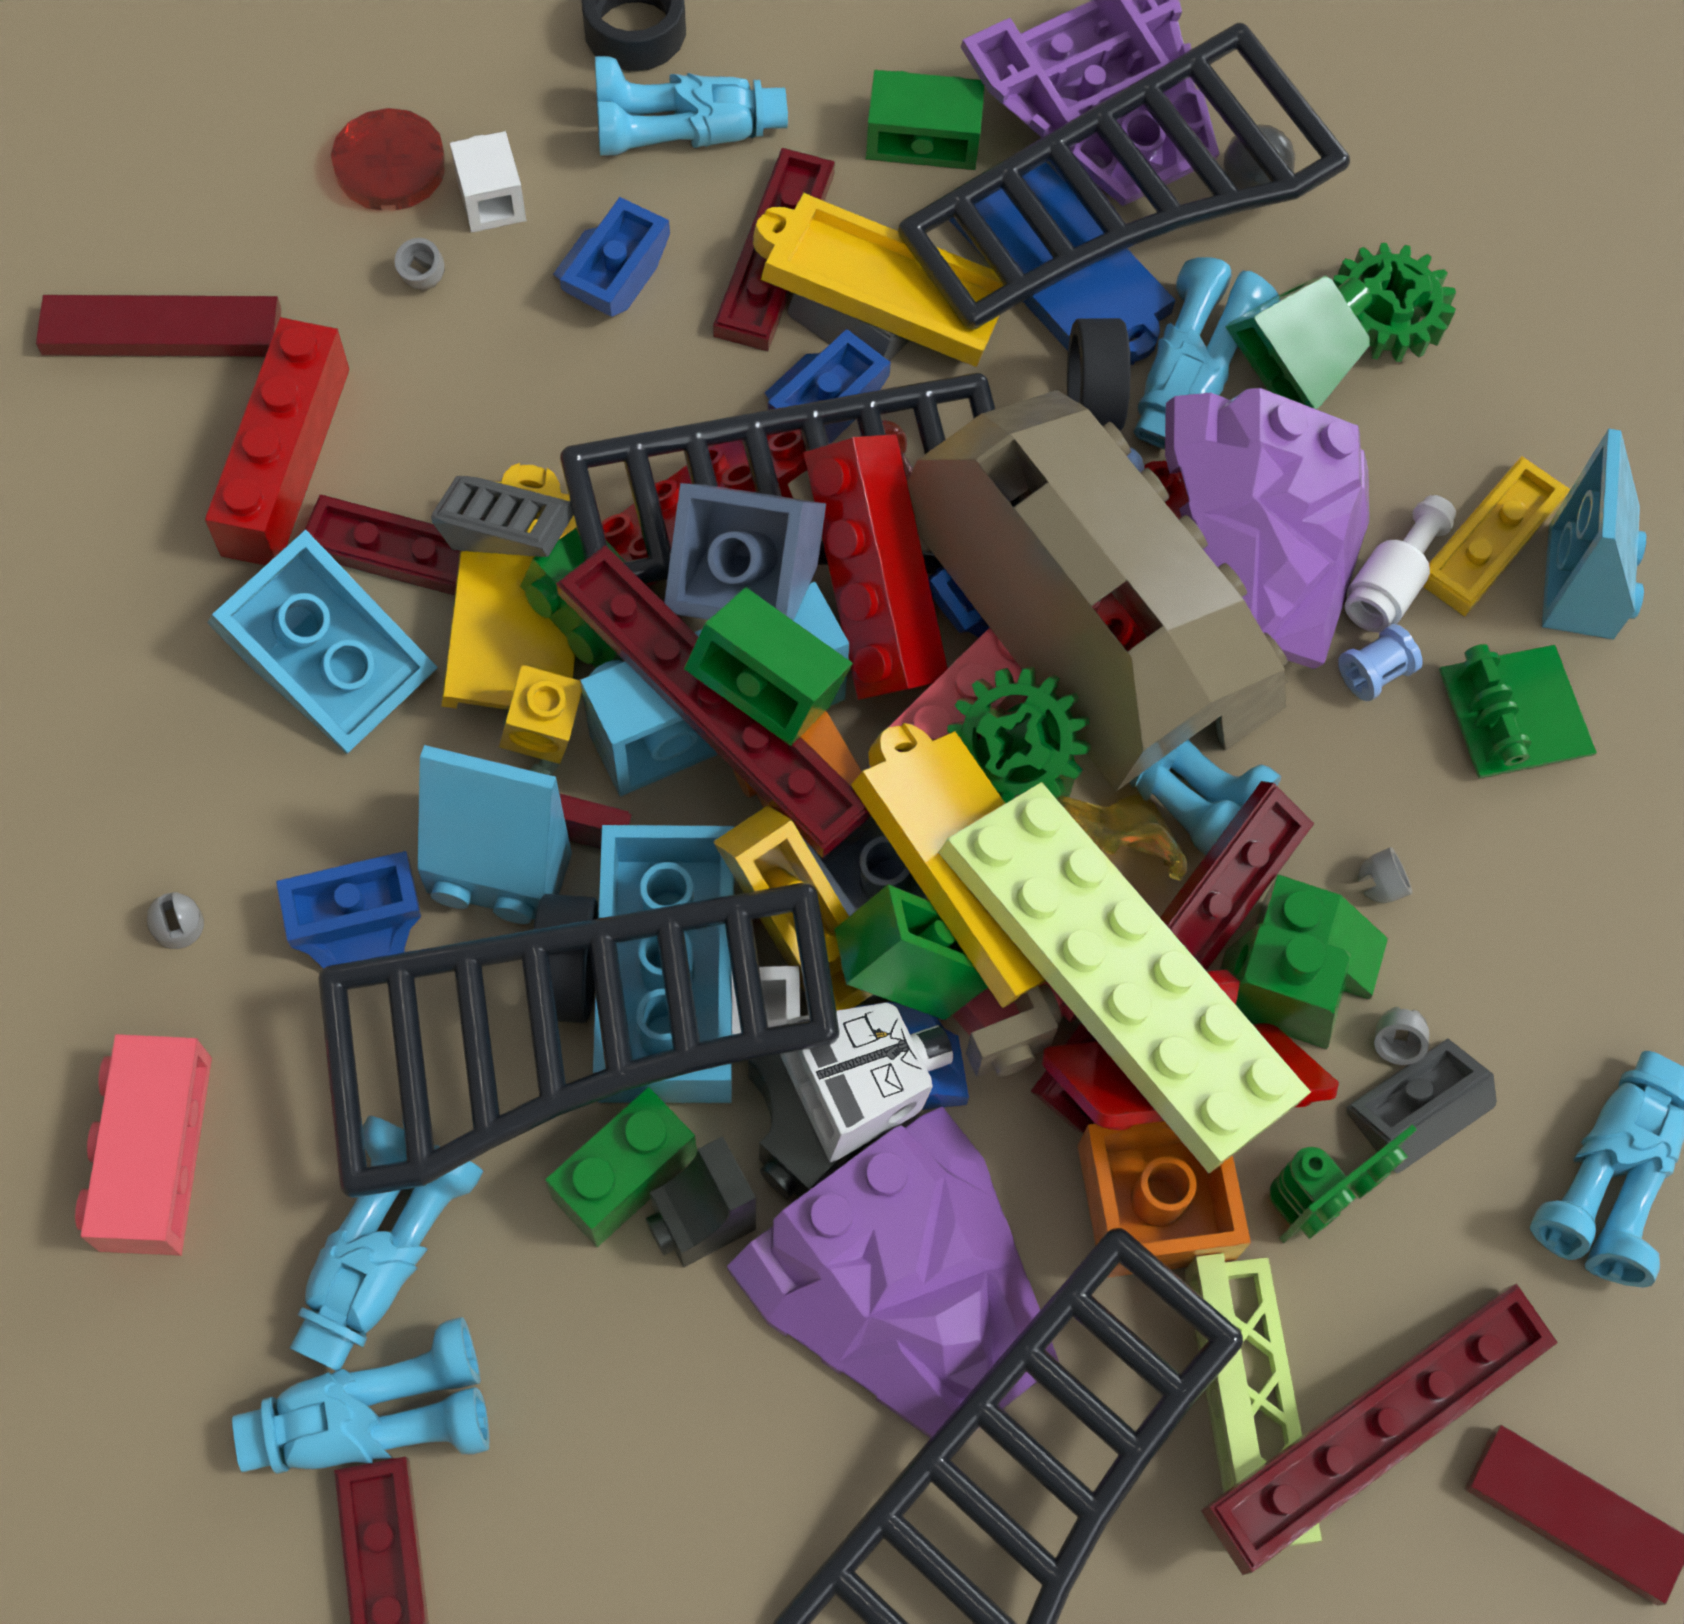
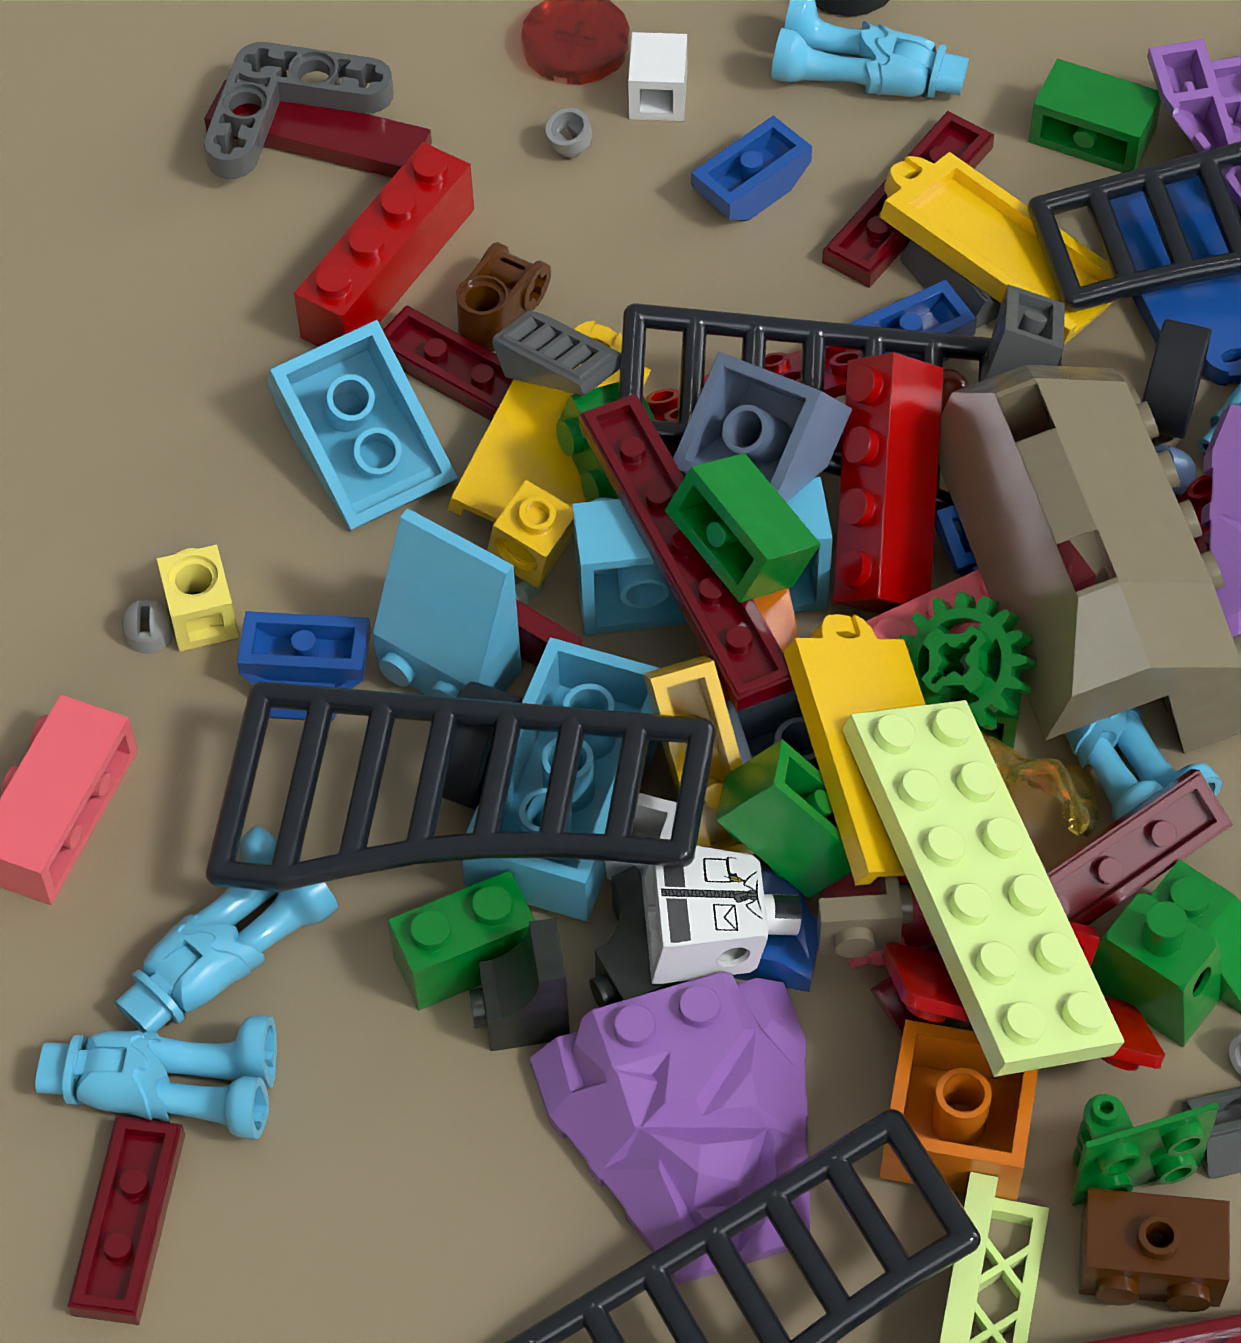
camera: 25 degrees right, 10 degrees down
(94, 295) = (272, 85): none -> dark grey beam
(233, 895) = (203, 616): none -> light yellow brick
(415, 453) = (499, 293): none -> reddish brown piece
(956, 380) = (1025, 332): none -> dark grey slope
(1380, 1270) = (1154, 1249): none -> reddish brown brick

